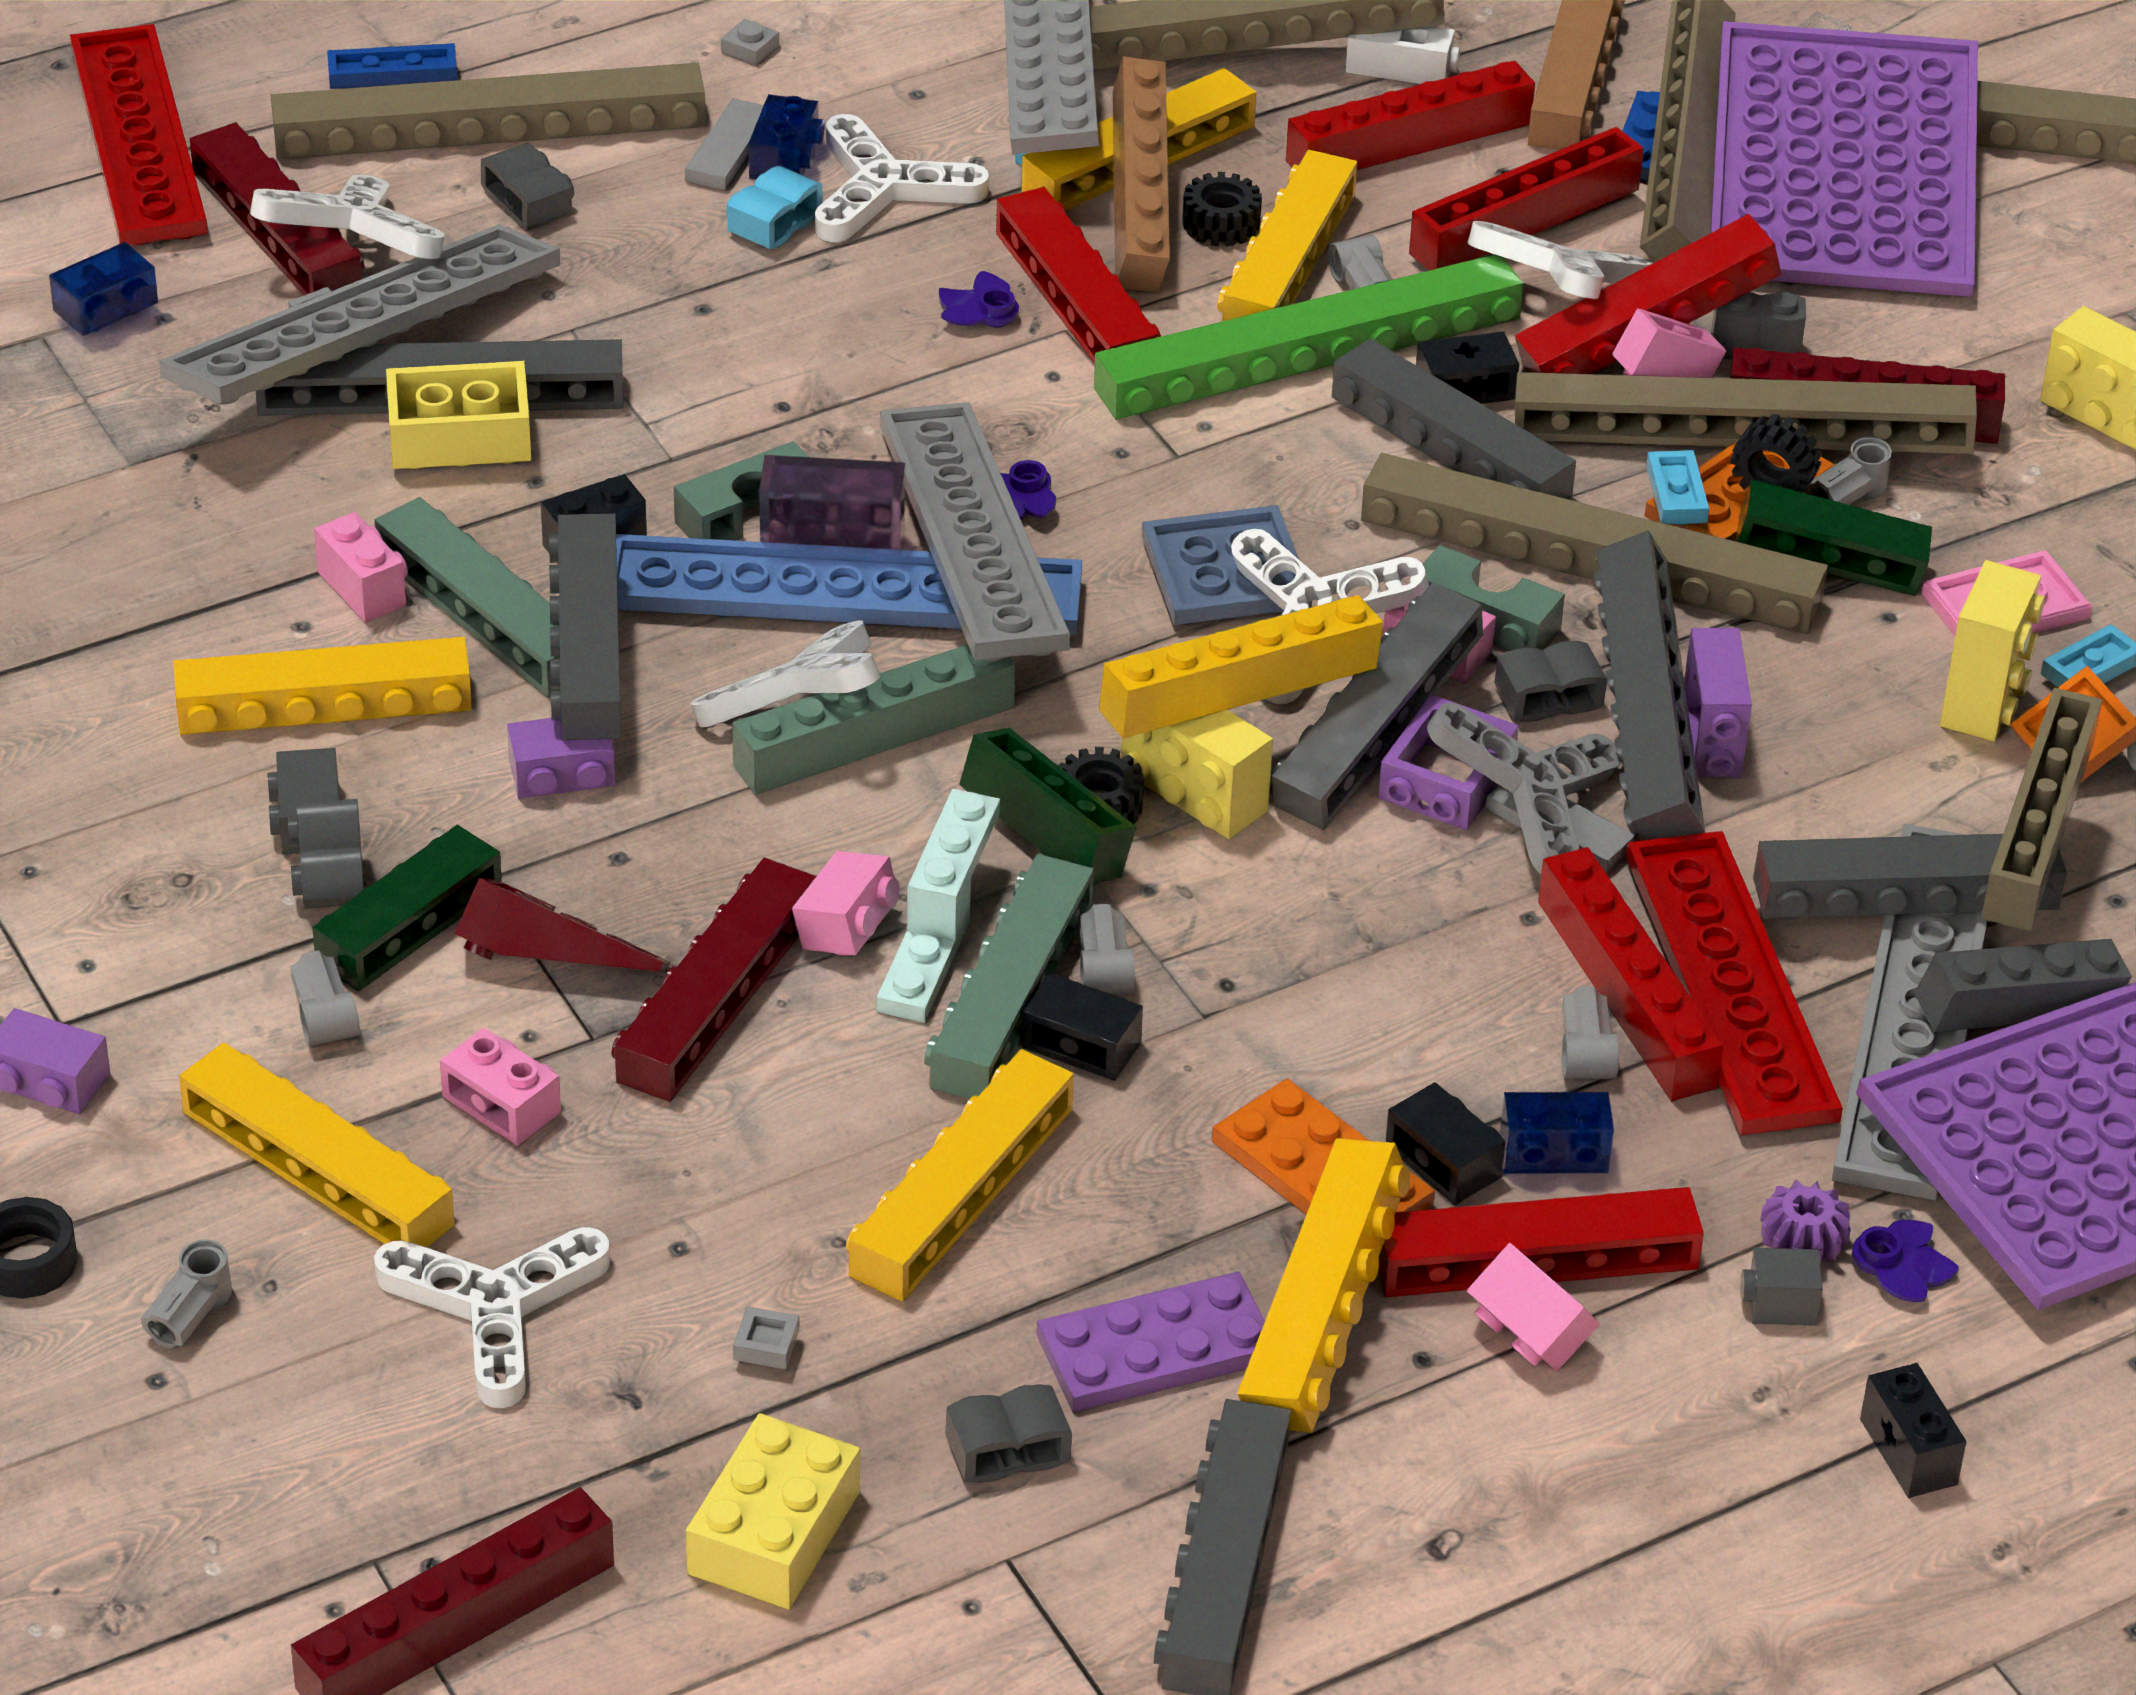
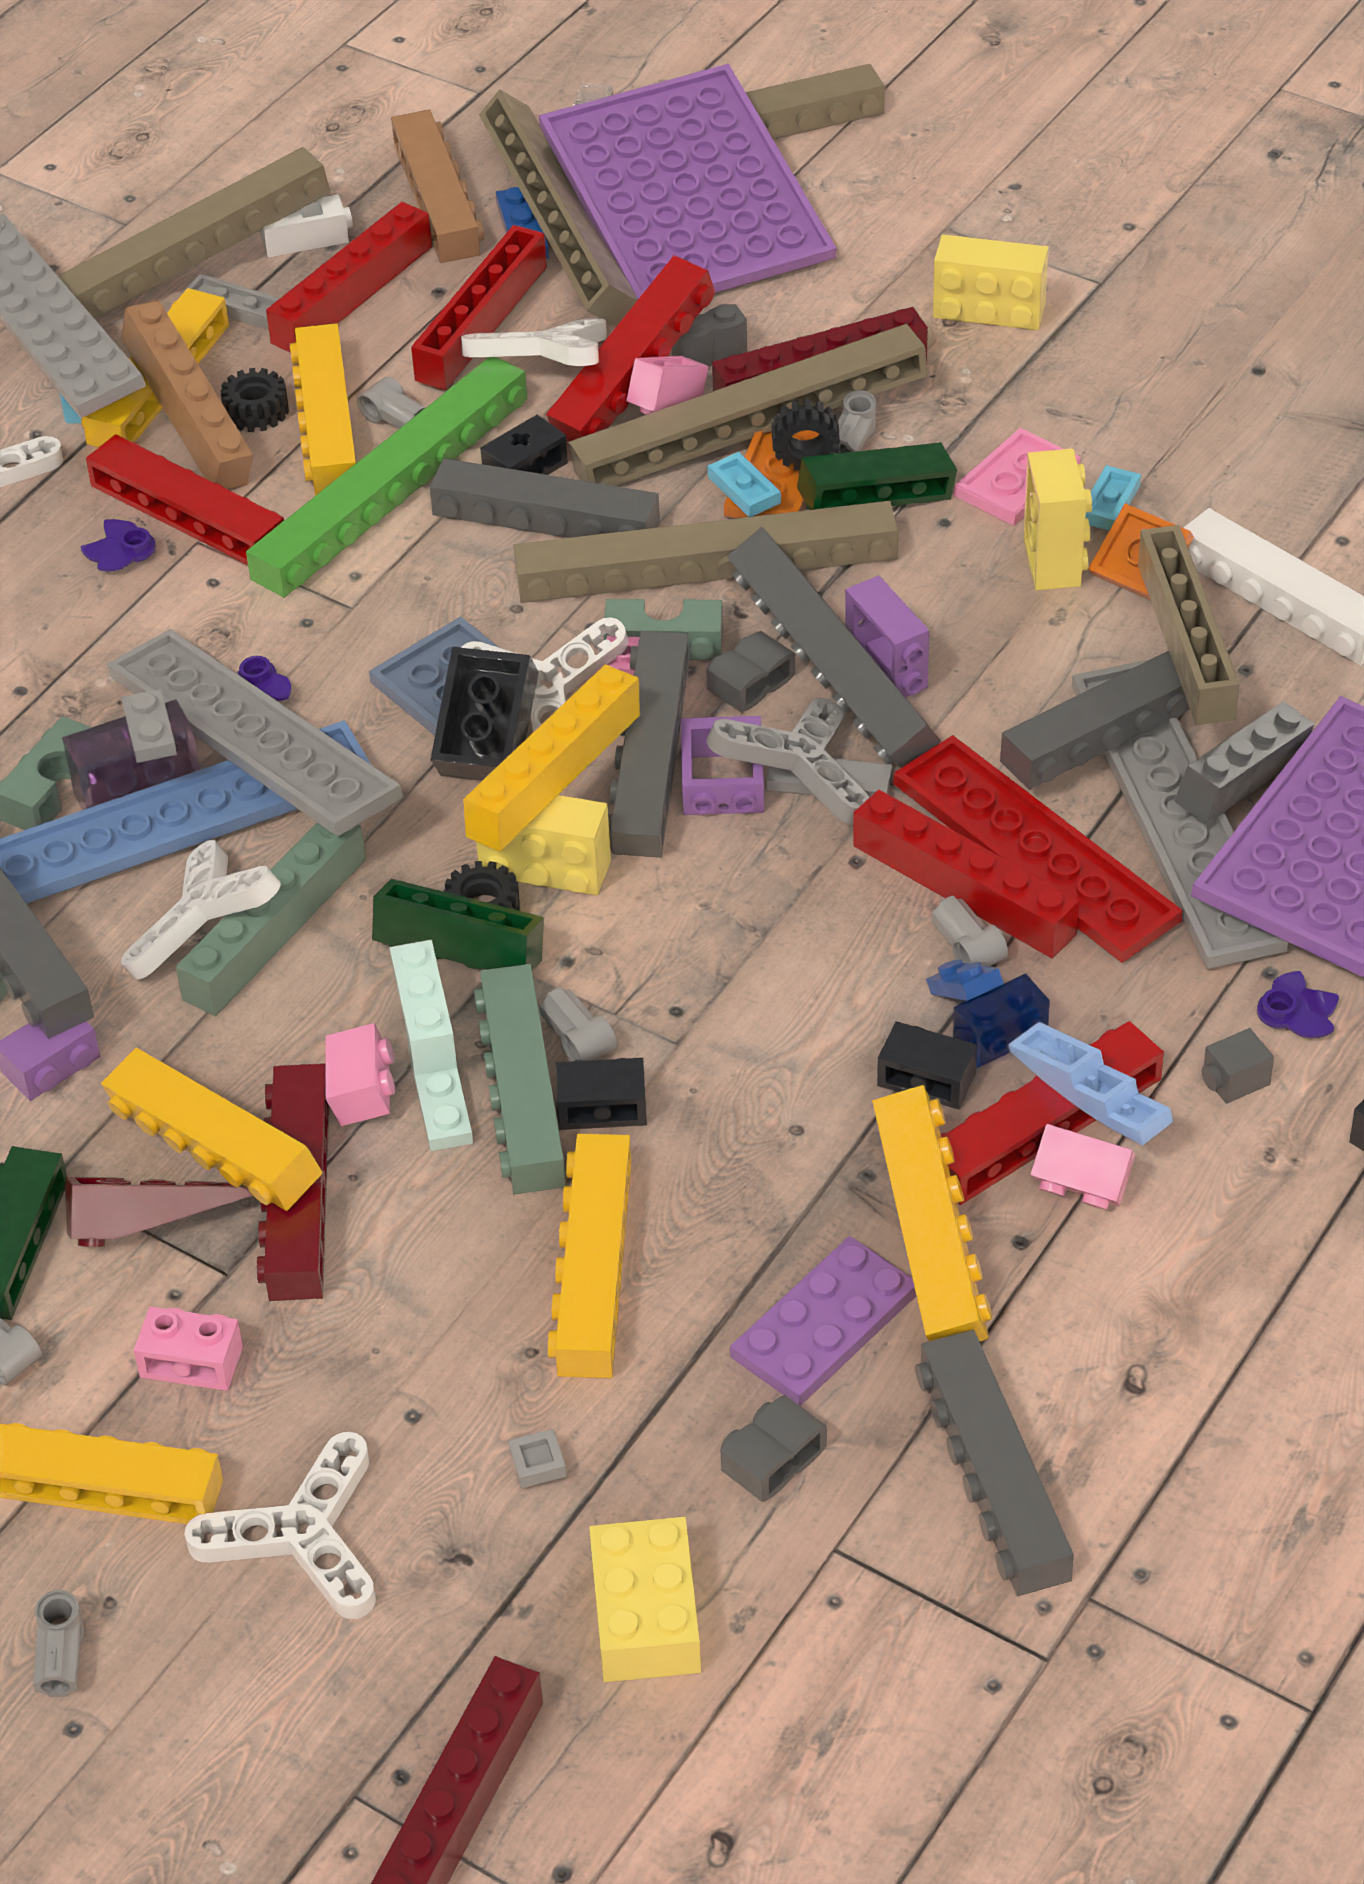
camera: 25 degrees left, 5 degrees up
(656, 890) = (211, 1129): none -> yellow brick
(856, 476) = (148, 725): none -> light grey plate
(1221, 587) = (482, 711): none -> black brick
(1273, 99) = (241, 303): none -> light grey tile
(1287, 1143) = (821, 1119): orange plate -> none
(1543, 1073) = (964, 980): none -> blue plate
(1591, 1226) = (1084, 1080): none -> light blue slope
(1806, 1220) = (1217, 1009): medium lavender gear -> none

